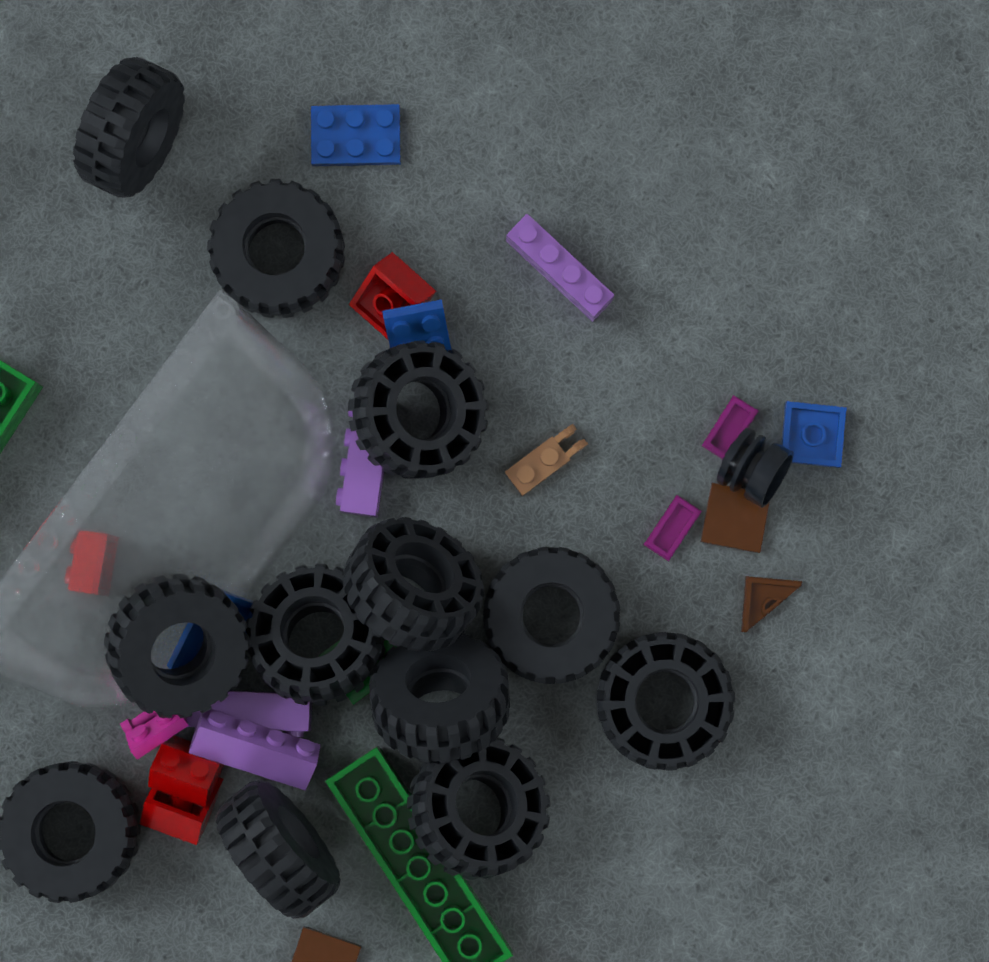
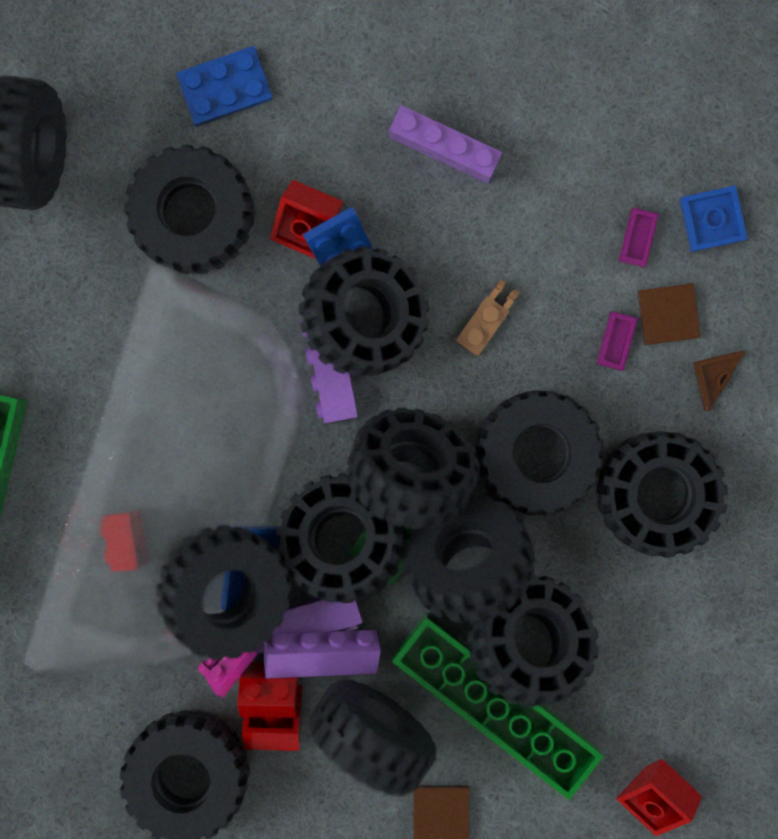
camera: 25 degrees left, 5 degrees up
(749, 464) = (674, 264): black wheel -> none

